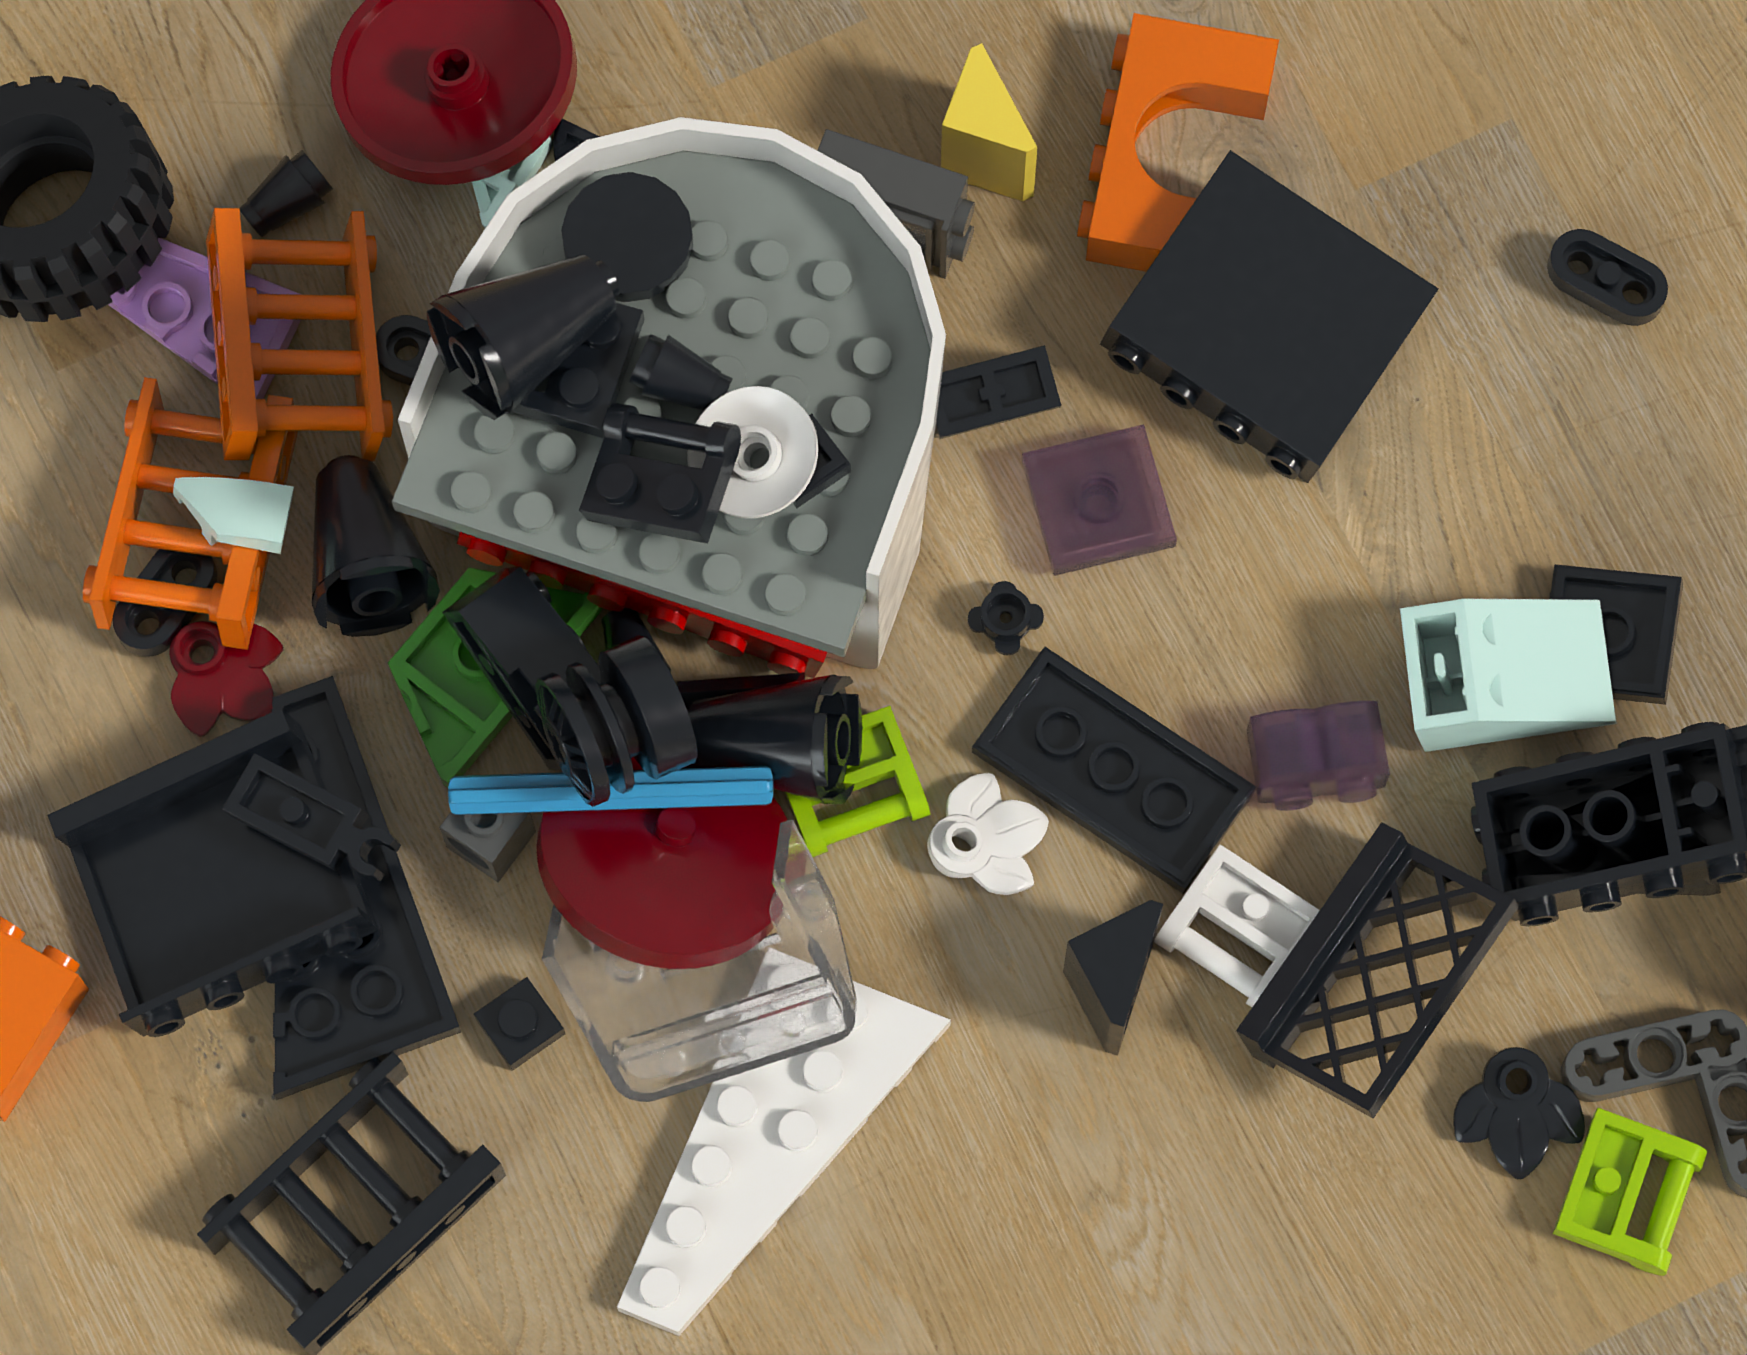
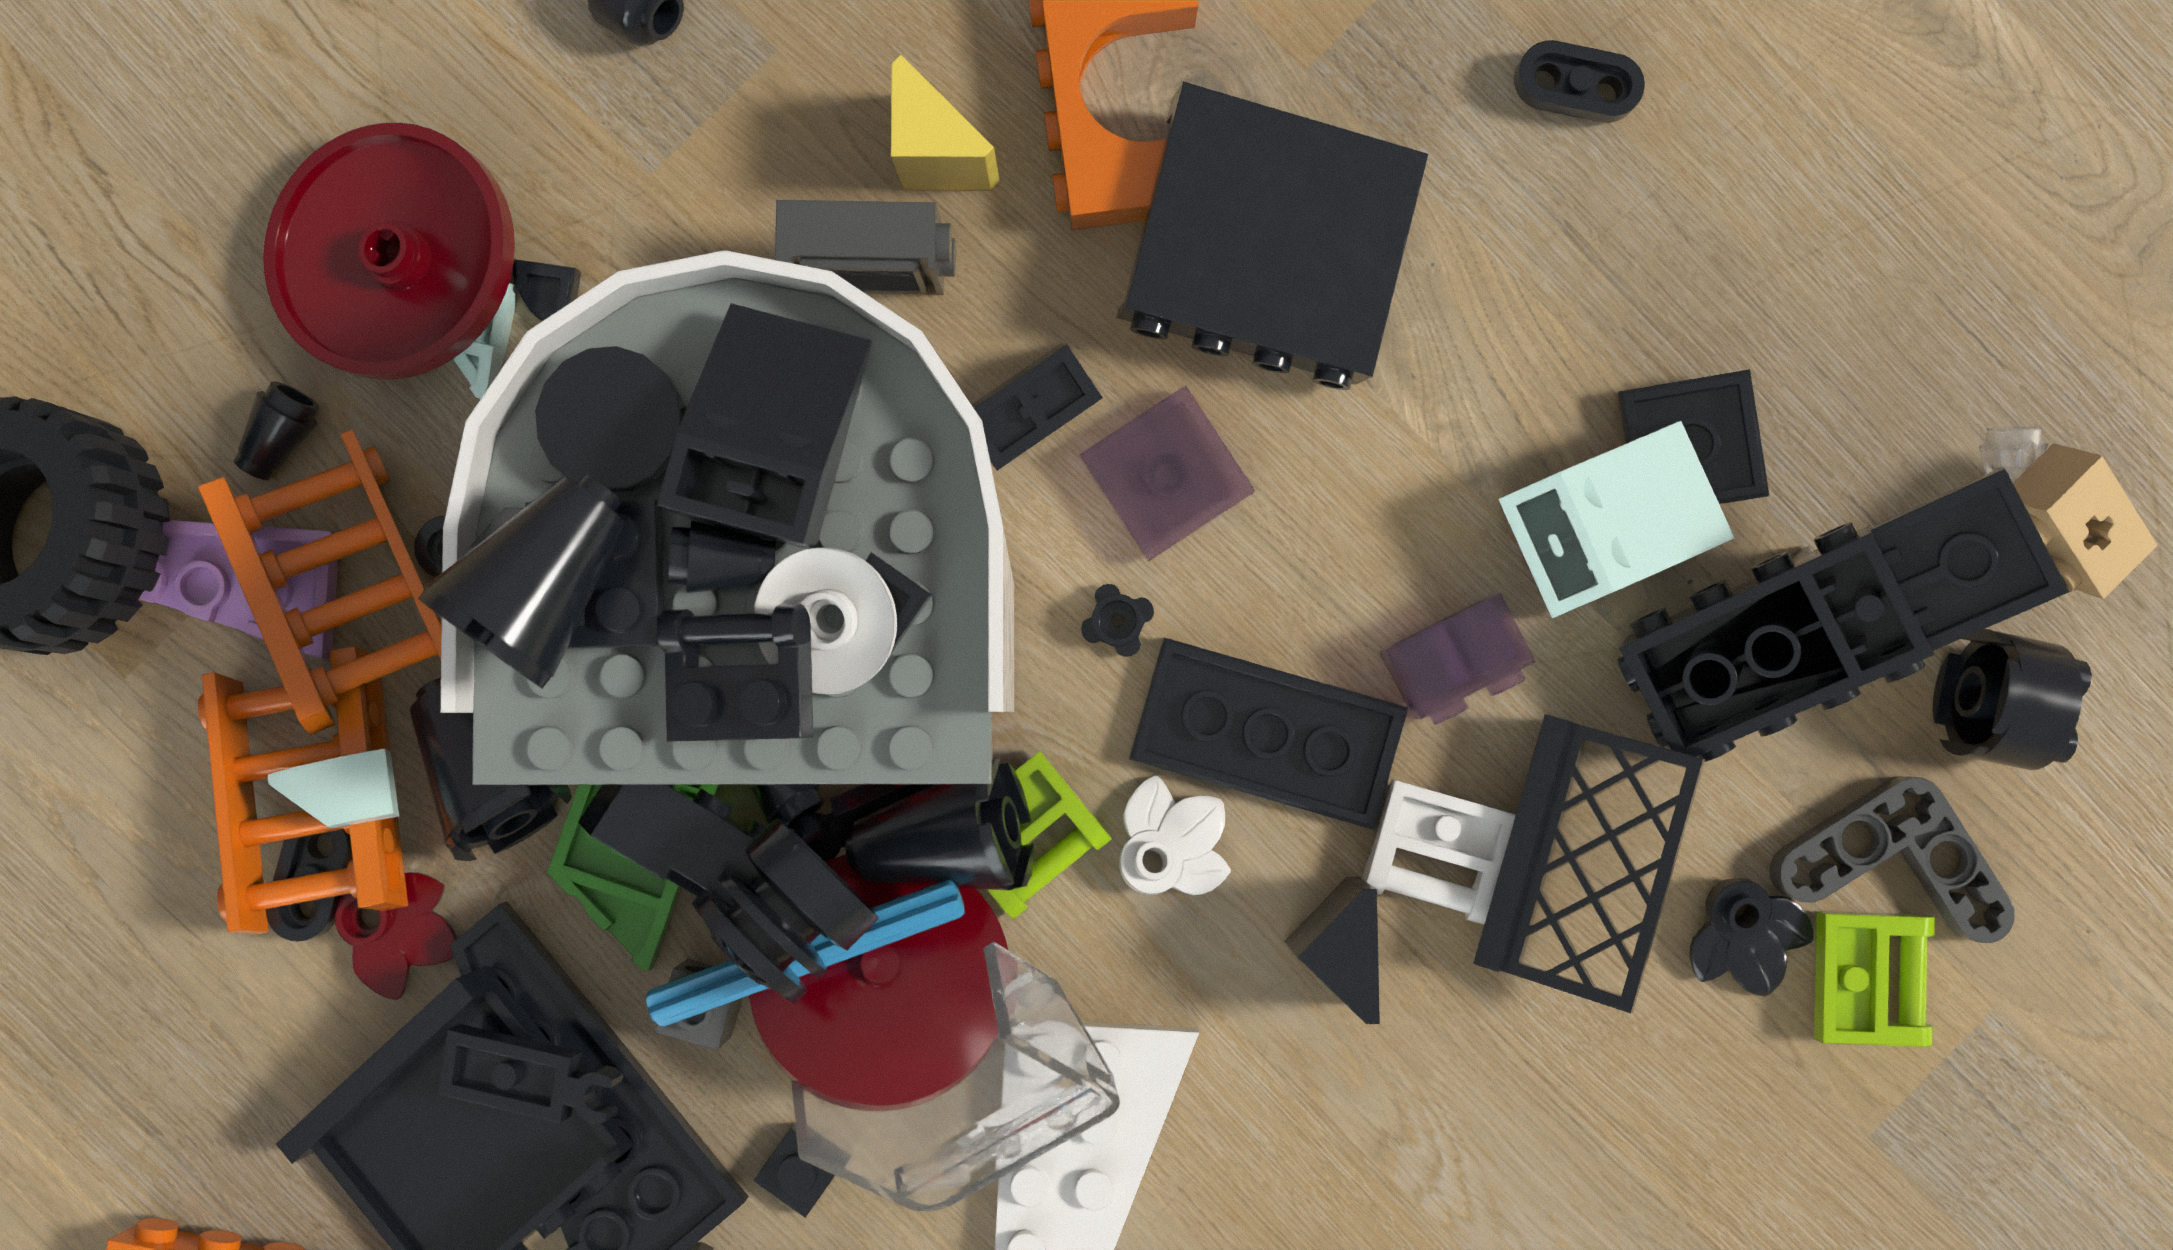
camera: 20 degrees left, 15 degrees up
(758, 283) = (766, 427): none -> black slope

